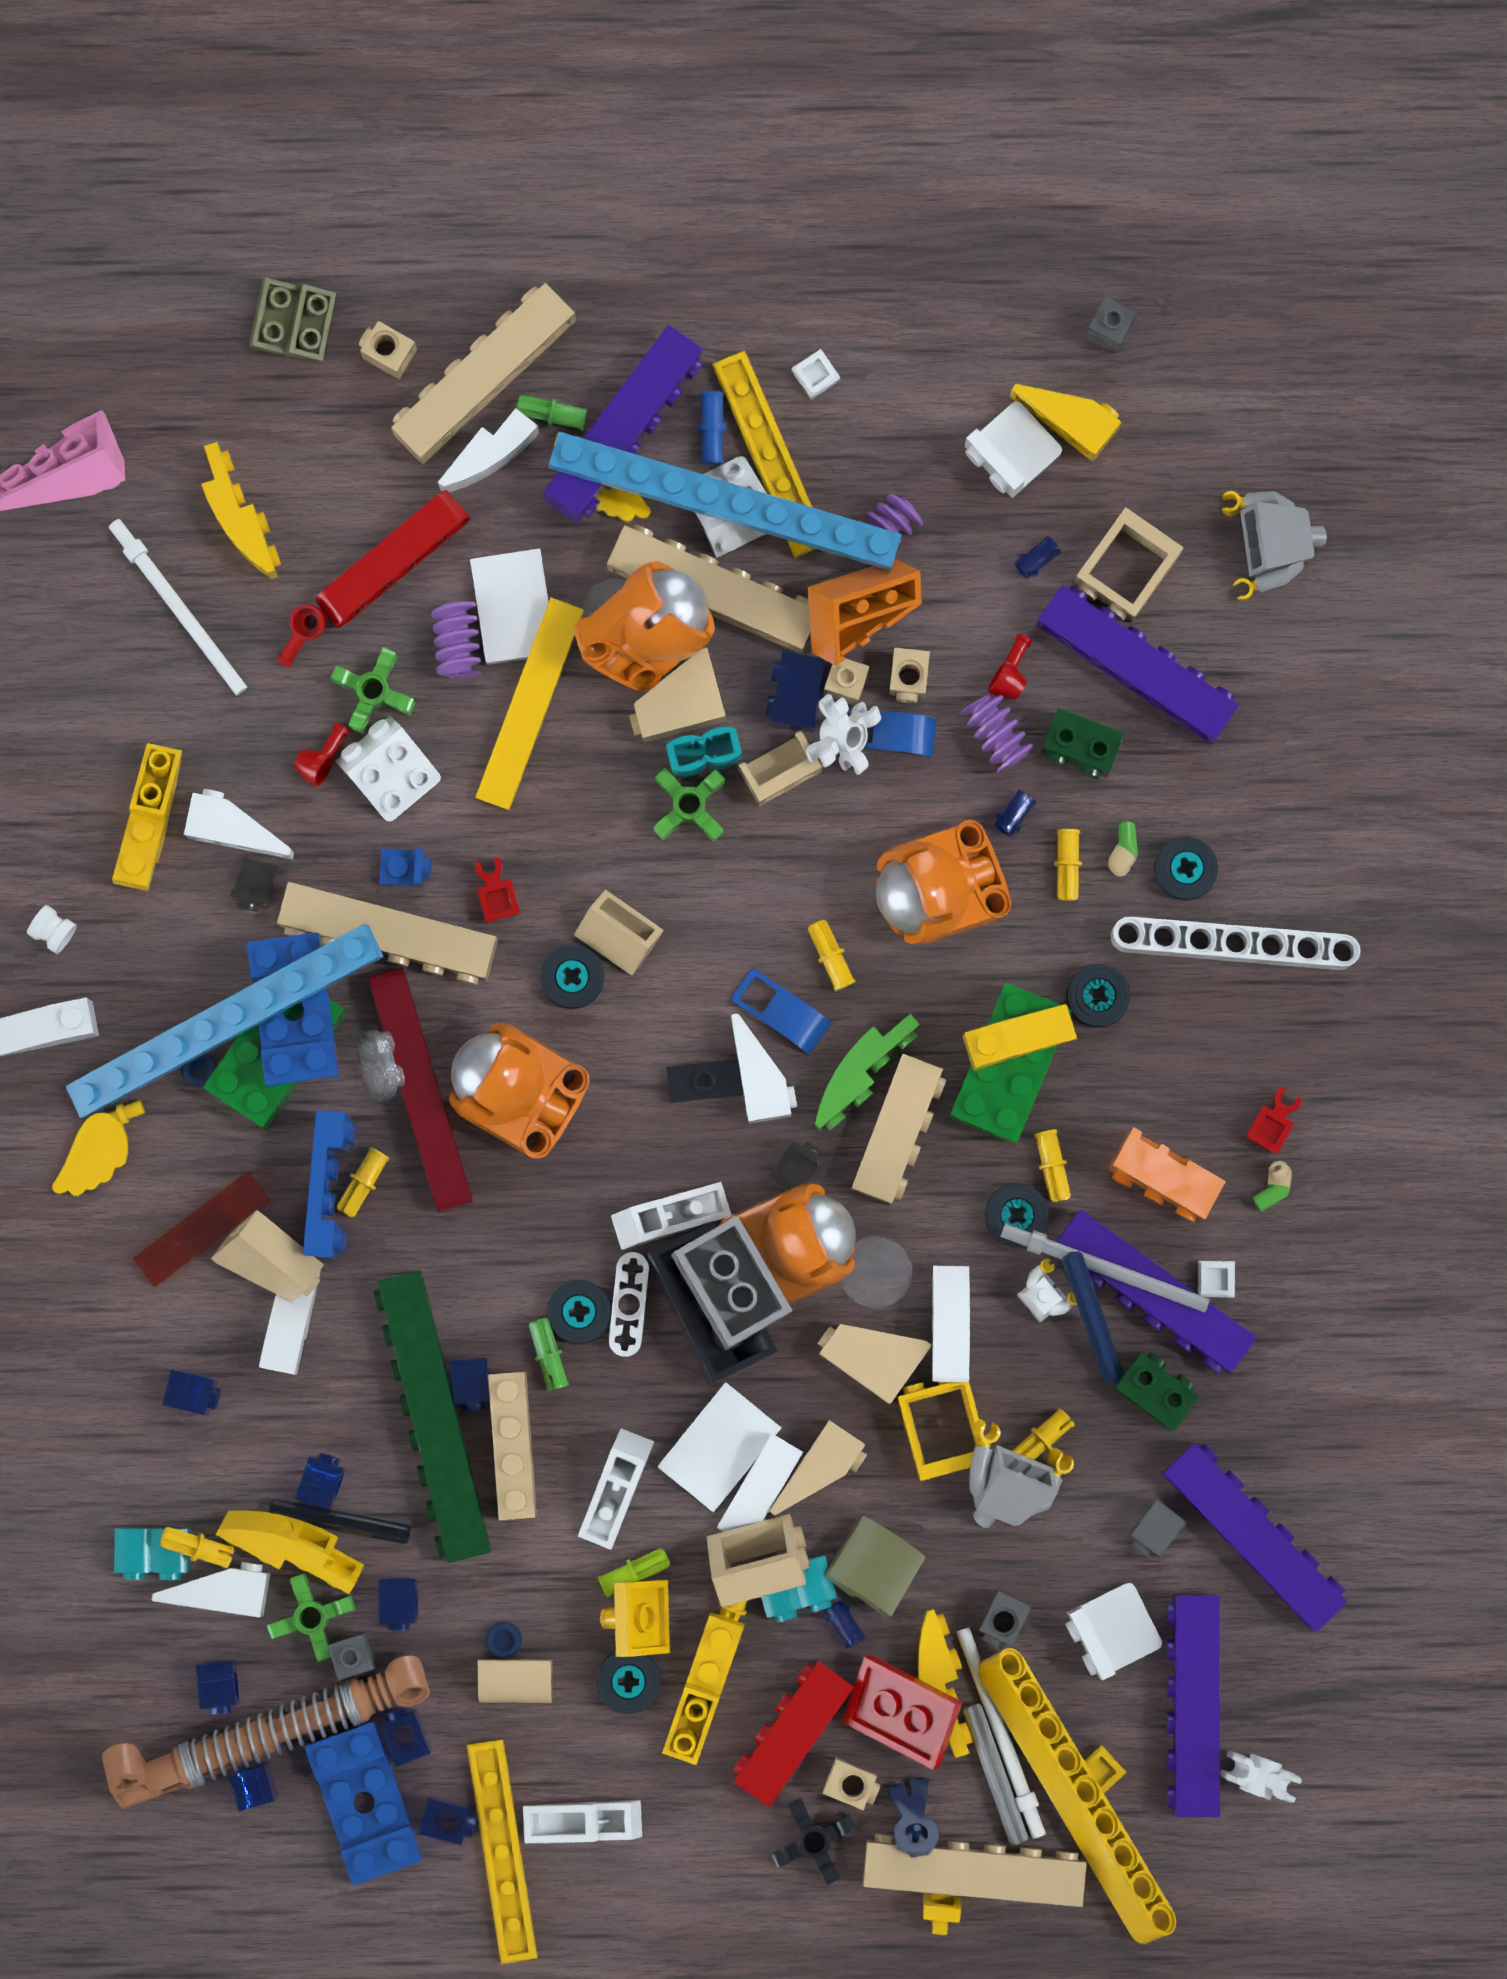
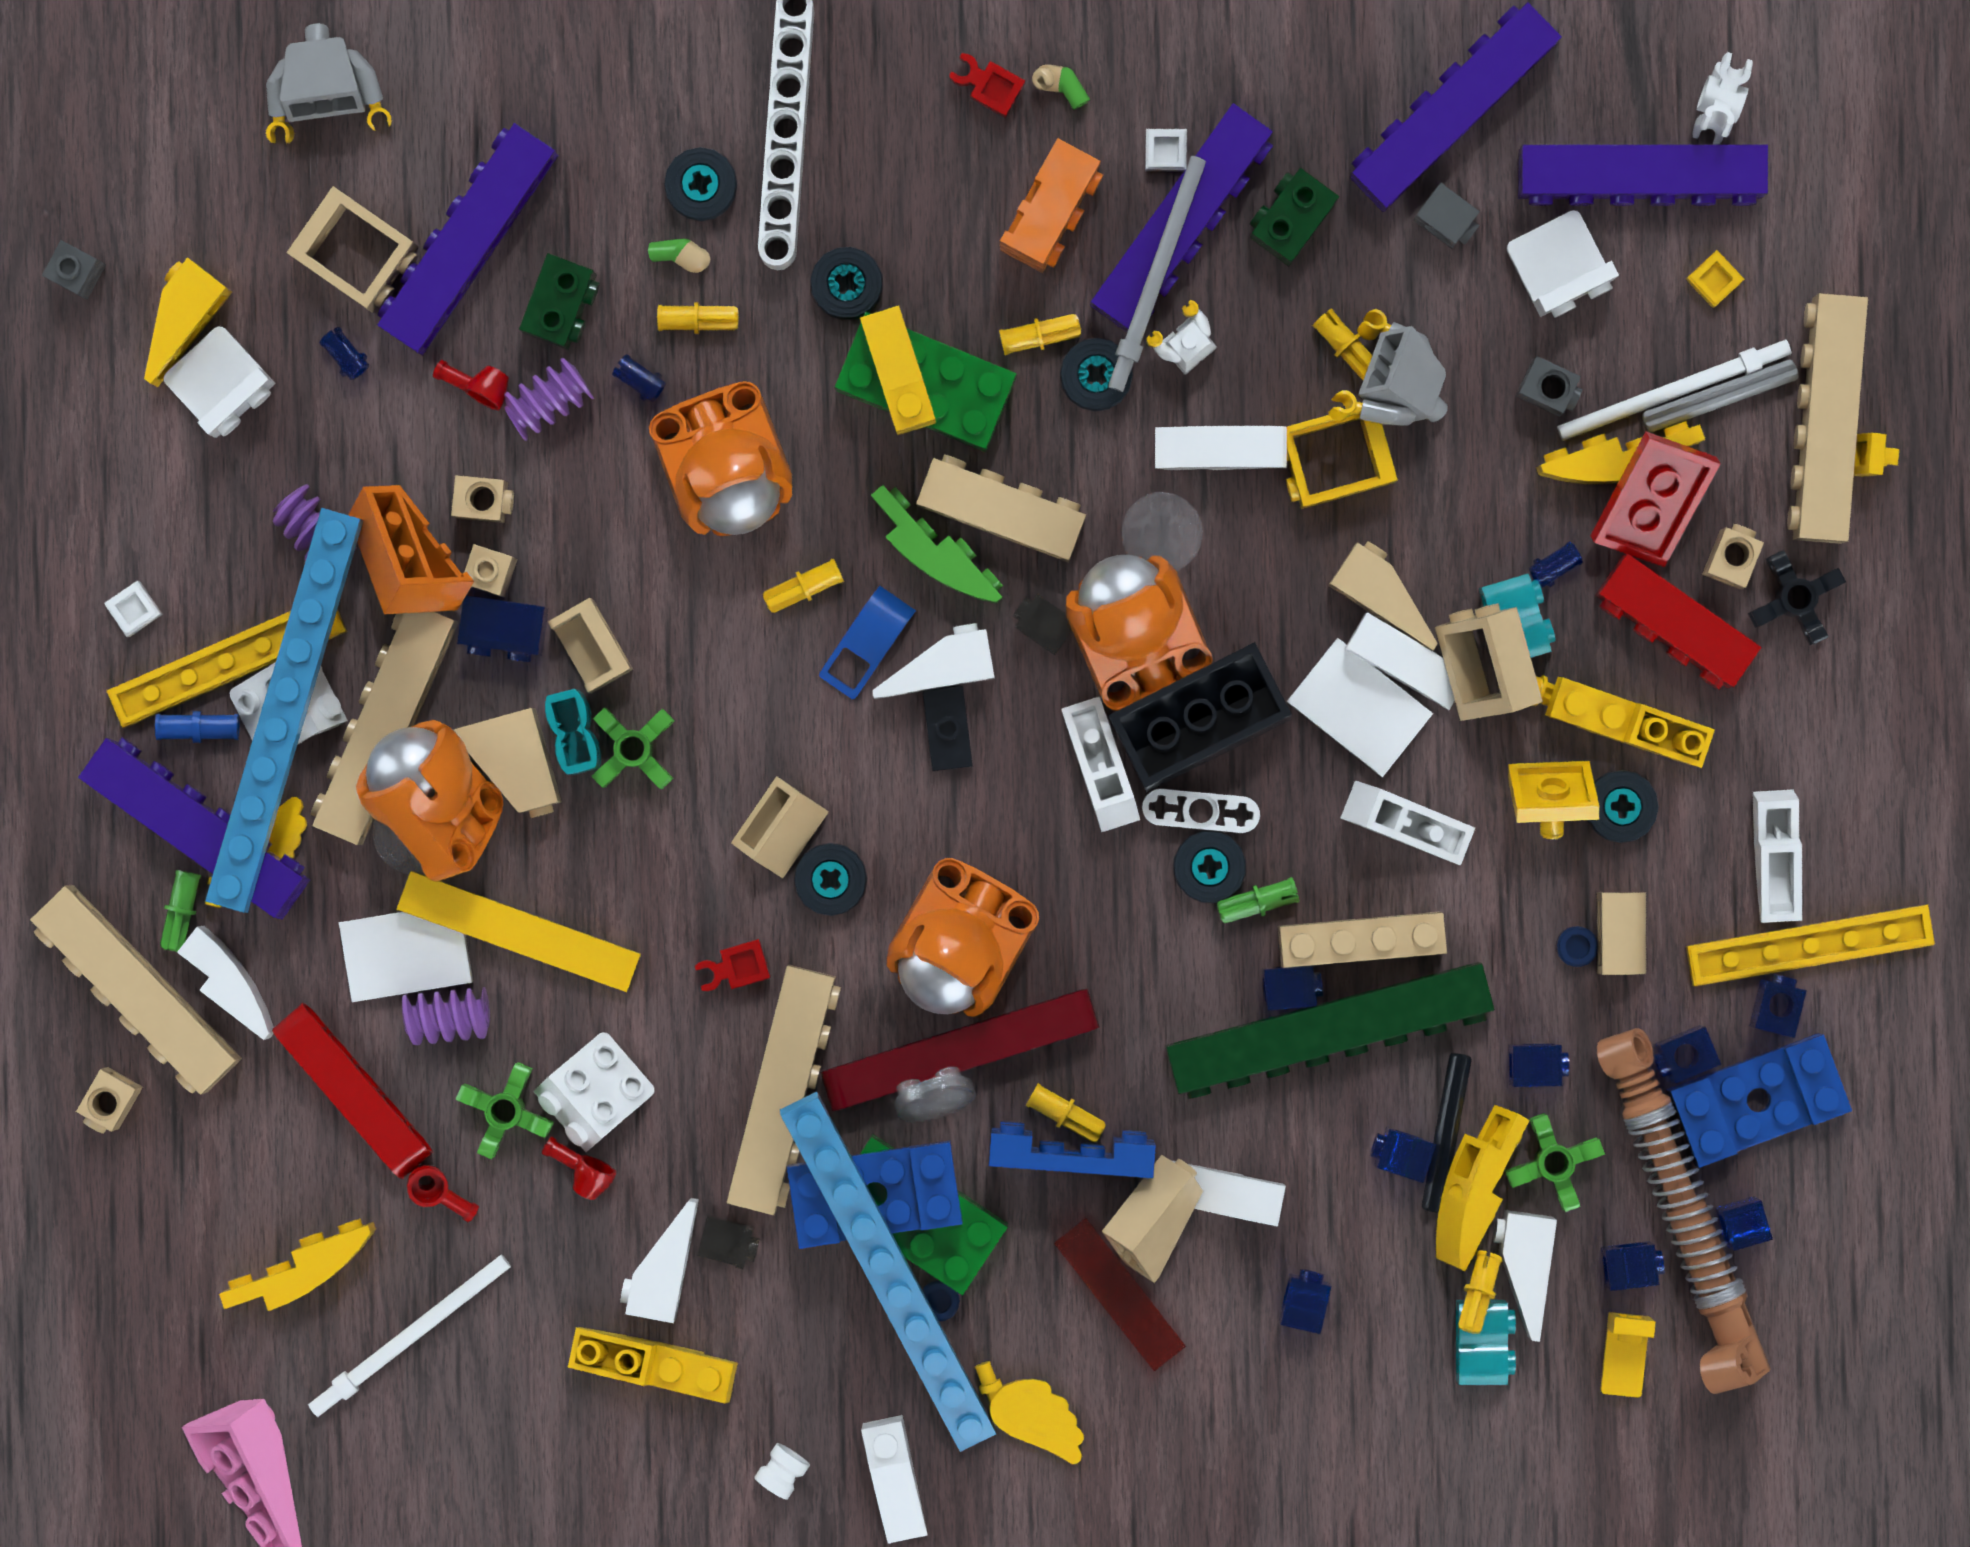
camera: 90 degrees left, 5 degrees up
(139, 1679) = (1625, 1354): none -> yellow bracket
(292, 320) = (75, 1210): olive slope -> none
(352, 1656) = (1597, 1115): dark grey brick -> none
(404, 868) = (707, 1072): blue bracket -> none
(635, 1570) = (1499, 800): lime axle -> none
(731, 1282) = (1180, 693): light grey brick -> none
(843, 734) = (551, 573): white pin -> none
(873, 1358) = (1258, 534): tan slope -> none
(875, 1566) = (1492, 531): olive slope -> none
(903, 733) = (546, 517): blue piece -> none
(914, 1832) = (1787, 484): dark blue piece -> none
(1077, 1796) = (1744, 304): yellow beam -> none
(1092, 1316) = (1211, 287): dark blue axle -> none

